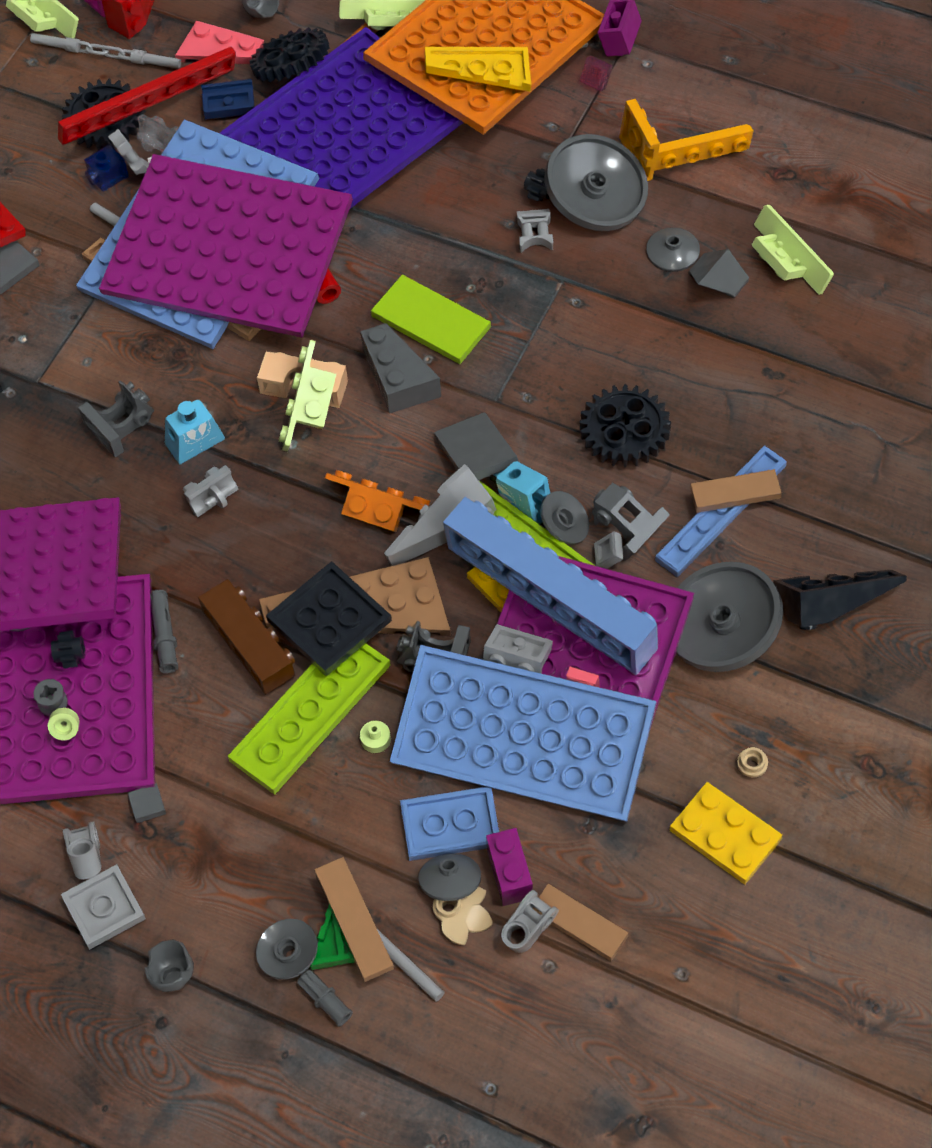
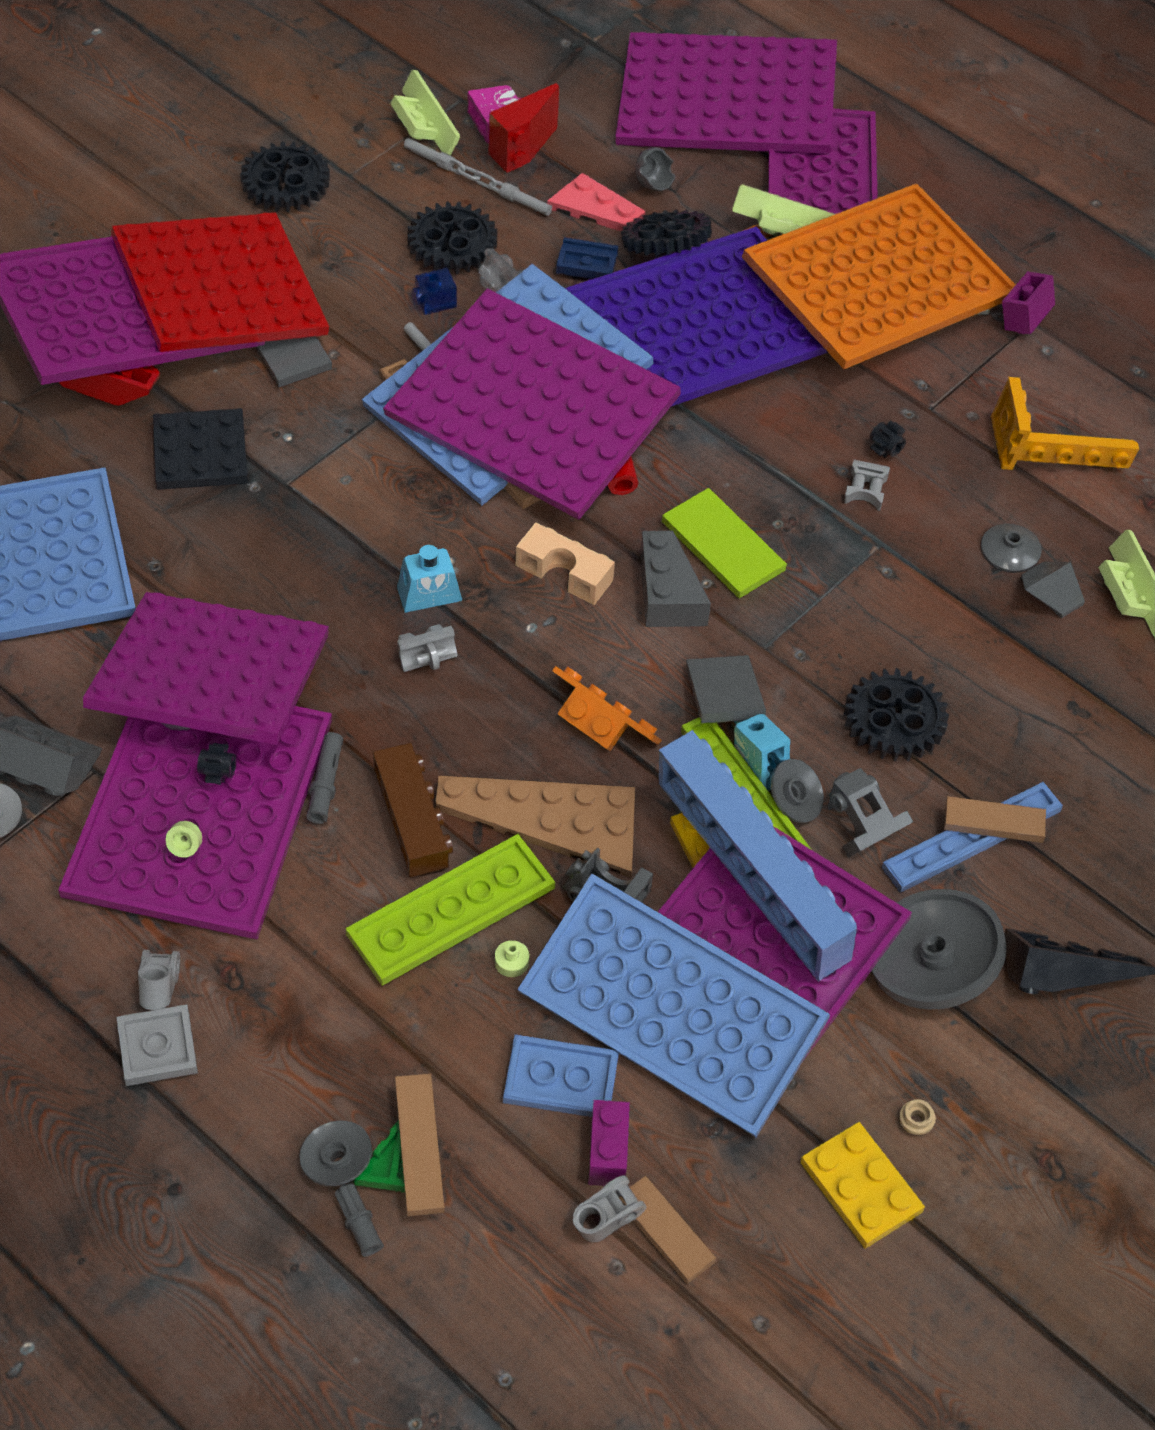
camera: 10 degrees right, 5 degrees down
(46, 689) = (186, 809): dark grey wheel -> none
(102, 422) = (339, 545): dark grey tile -> none
(137, 164) = (464, 285): light grey piece -> none
(146, 95) = (502, 230): red tile -> none
(146, 803) = (242, 952): dark grey tile -> none
(169, 966) = (203, 1130): dark grey hair -> none
(311, 397) = (566, 584): yellowish green bracket -> none
(329, 618) = (504, 817): black plate -> none
(412, 970) = (463, 1220): light grey bar -> none
(429, 529) = (641, 759): light grey wedge -> none
(449, 877) = (540, 1133): dark grey dish -> none
(464, 918) = (544, 1181): tan plate -> none
(486, 65) = (871, 299): yellow wing -> none
(517, 649) = (696, 911): light grey bracket -> none
(583, 677) = (758, 963): coral tile -> none
(596, 73) = (987, 343): clear pink tile -> none
(596, 182) = (949, 453): dark grey dish -> none
(608, 550) = (834, 840): light grey tile -> none

